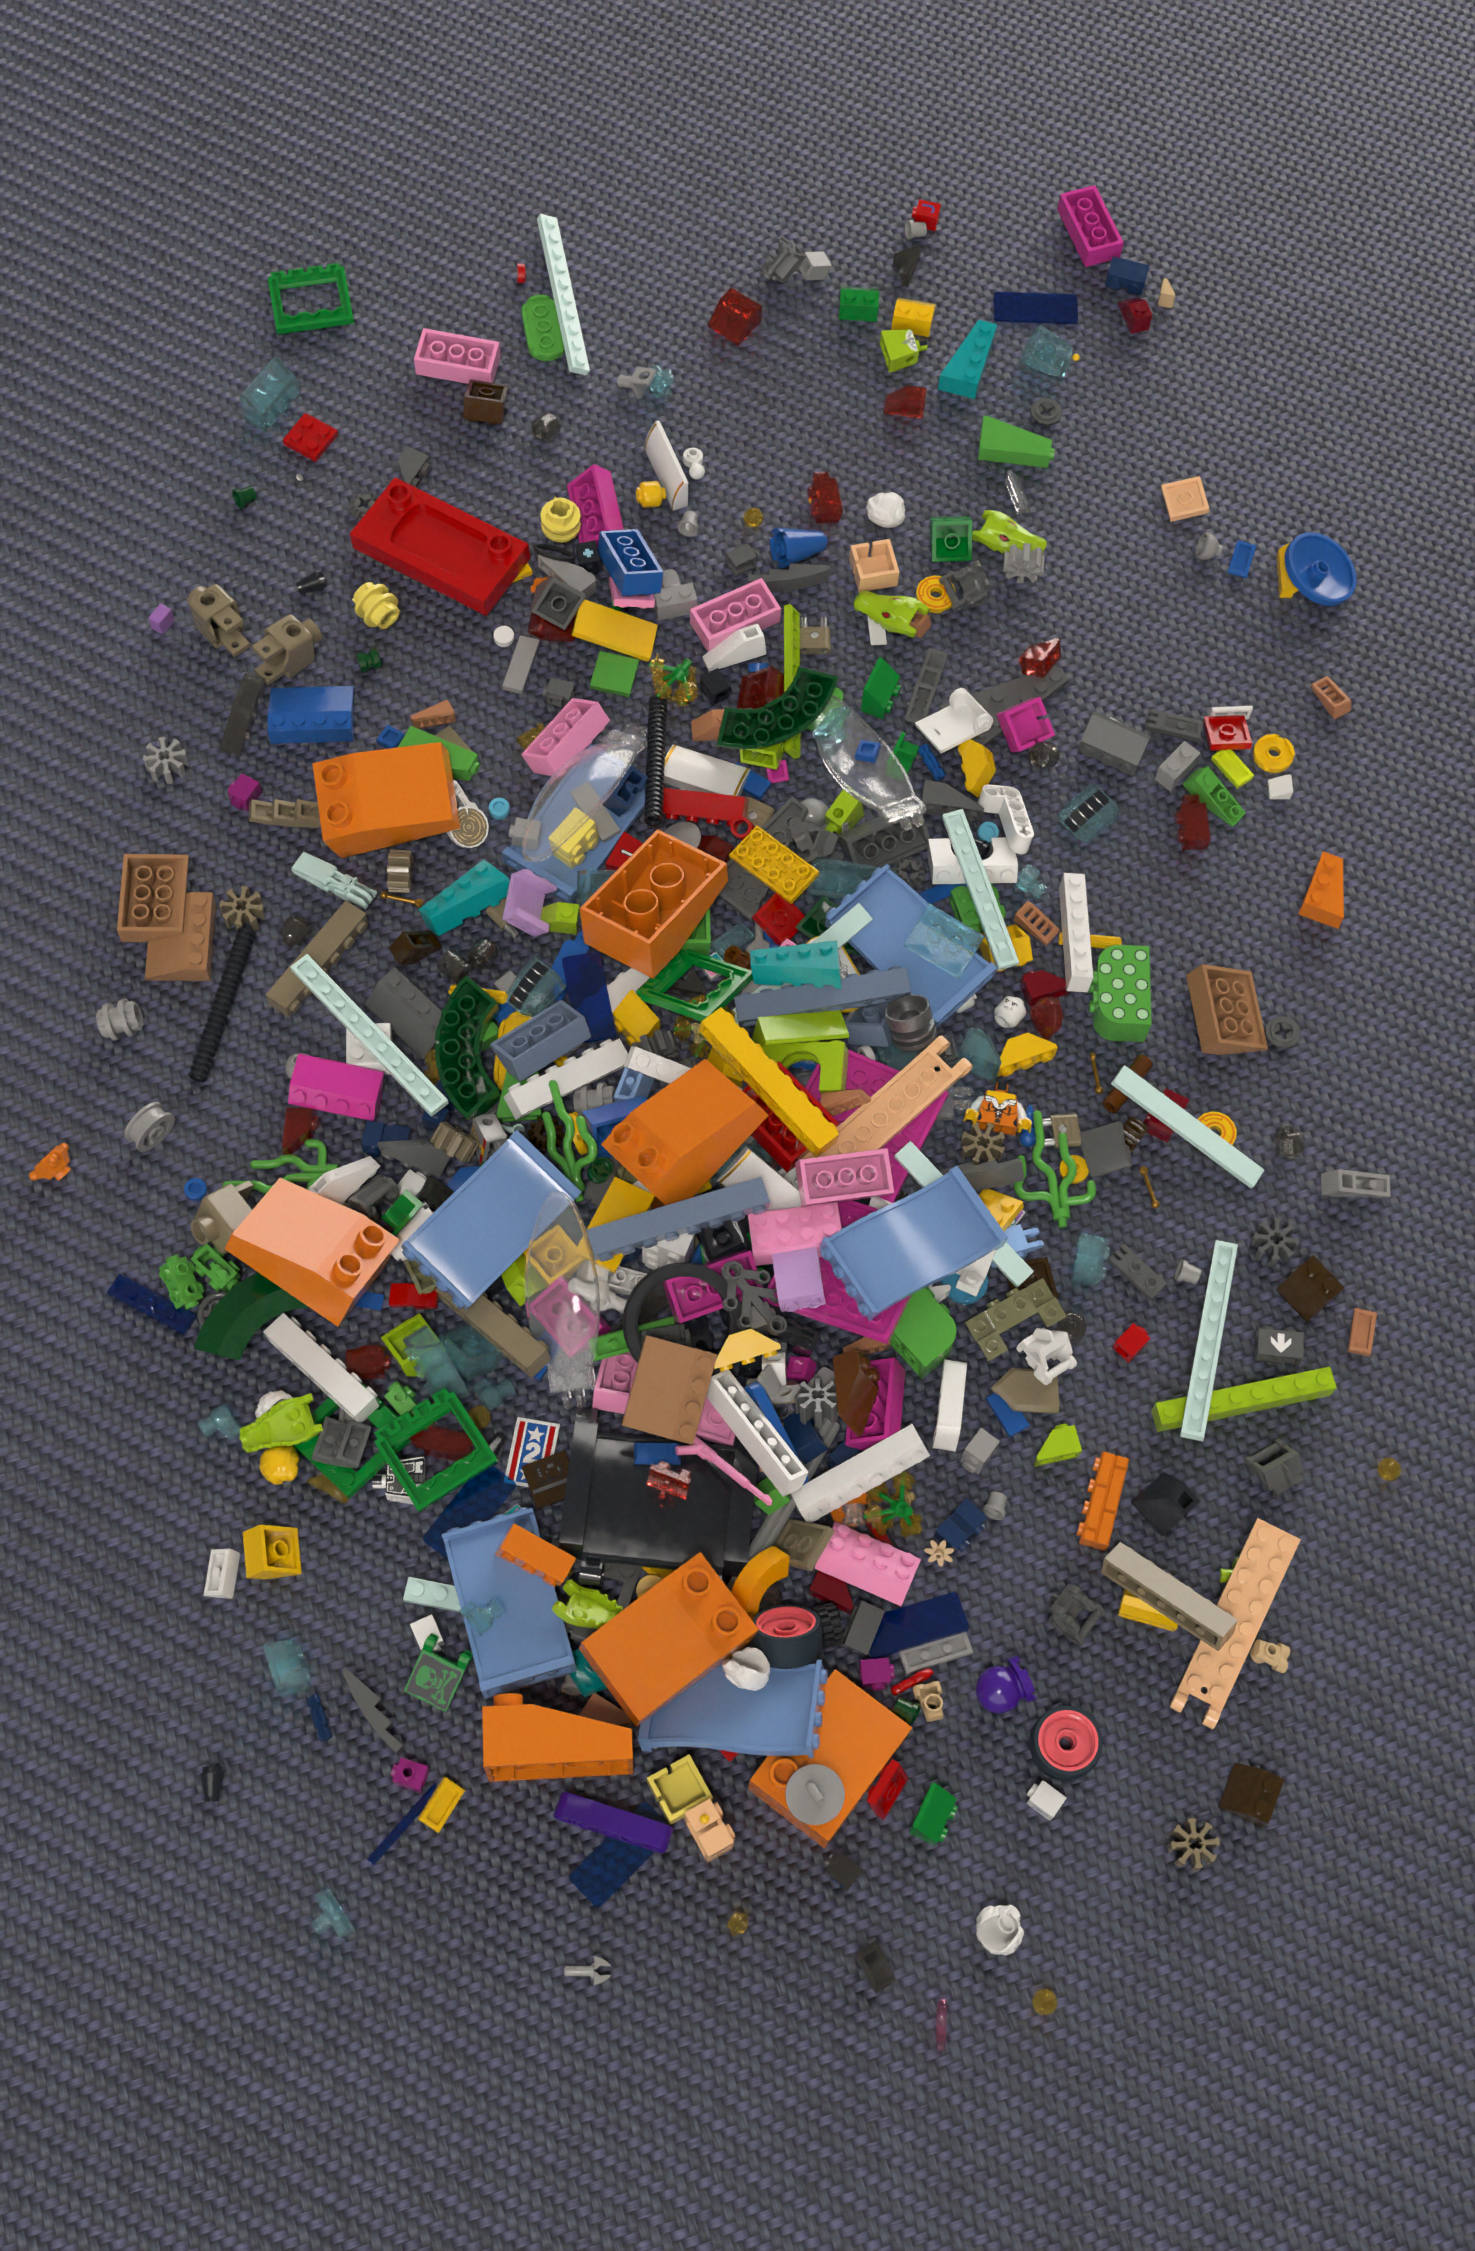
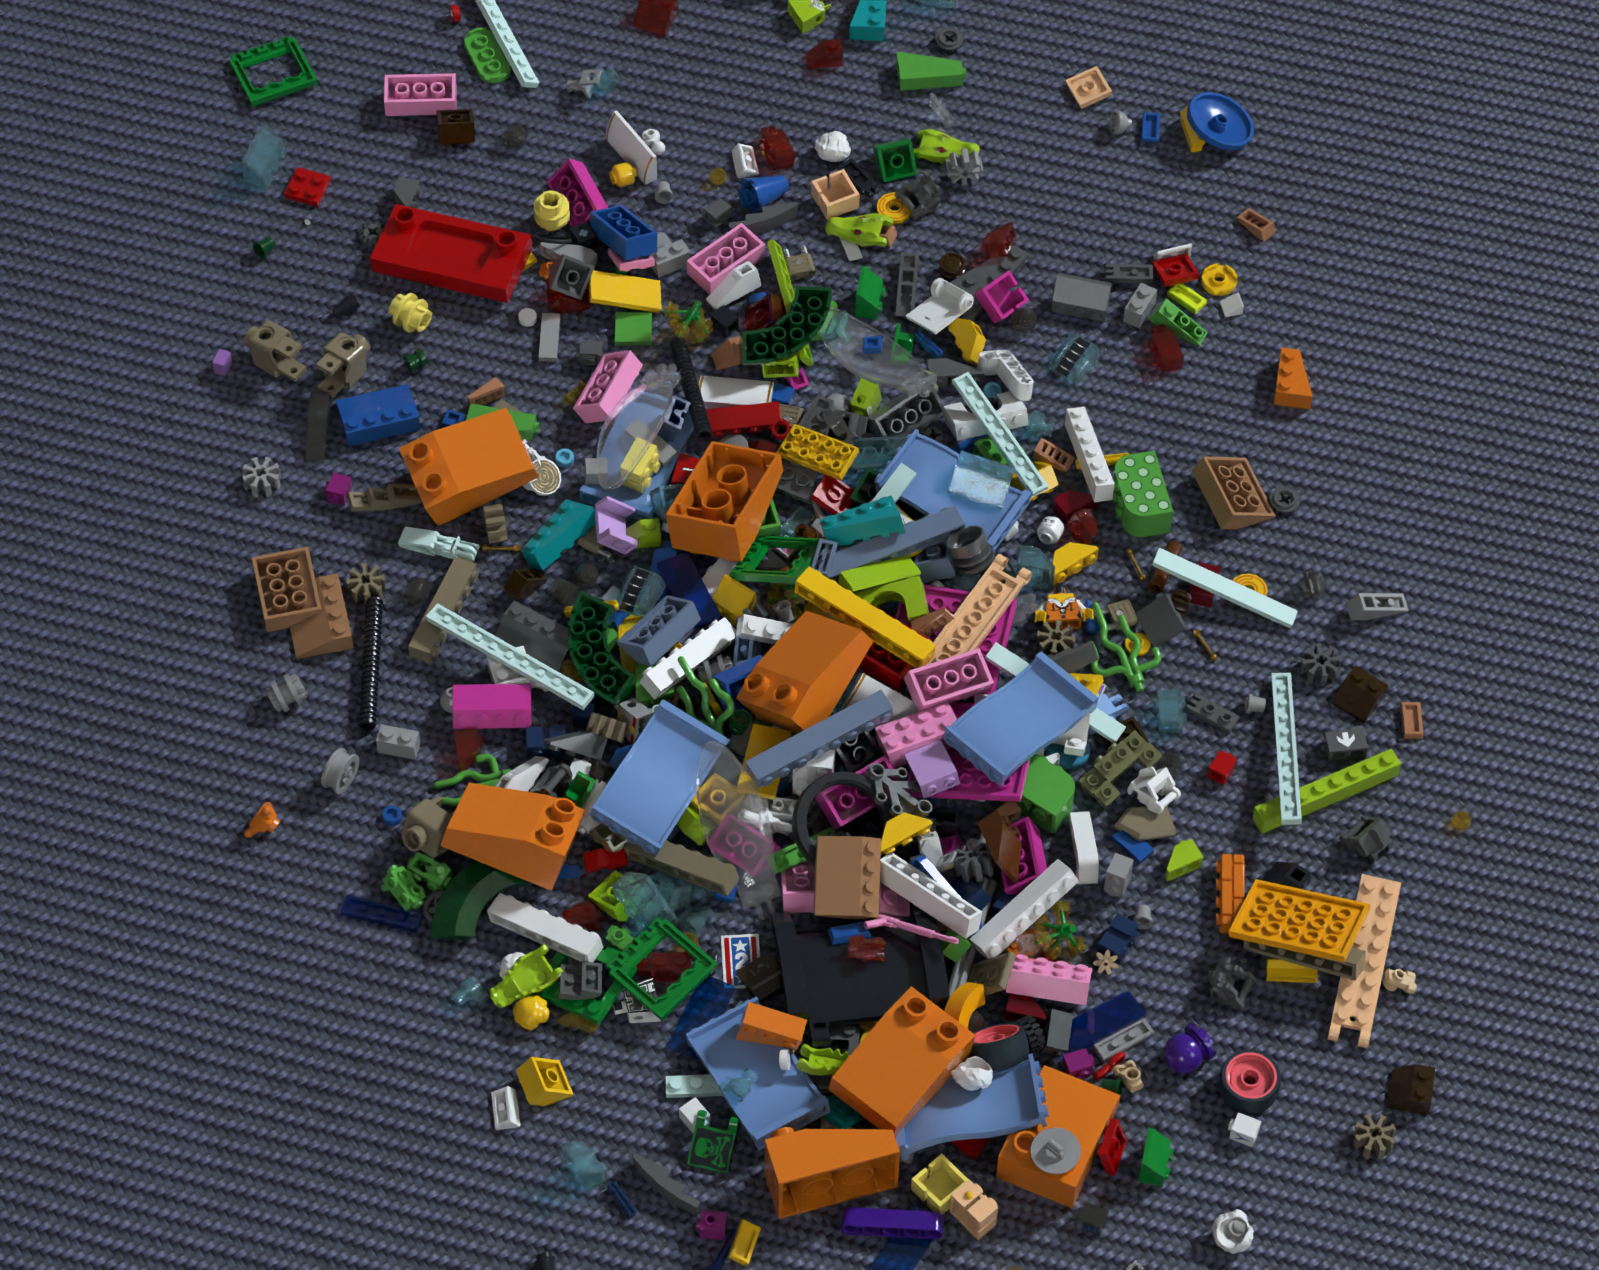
camera: 10 degrees left, 10 degrees down
(224, 1104) = (398, 741): none -> light grey brick
(540, 1597) = (784, 1059): none -> white tile
(686, 1046) = (783, 611): none -> light grey piece
(735, 1012) = (828, 543): none -> sand blue tile
(787, 506) = (744, 161): none -> white slope
(905, 551) = (859, 178): none -> black hinge
(981, 675) = (951, 266): none -> dark brown wheel
(1171, 1561) = (1299, 920): none -> light orange plate

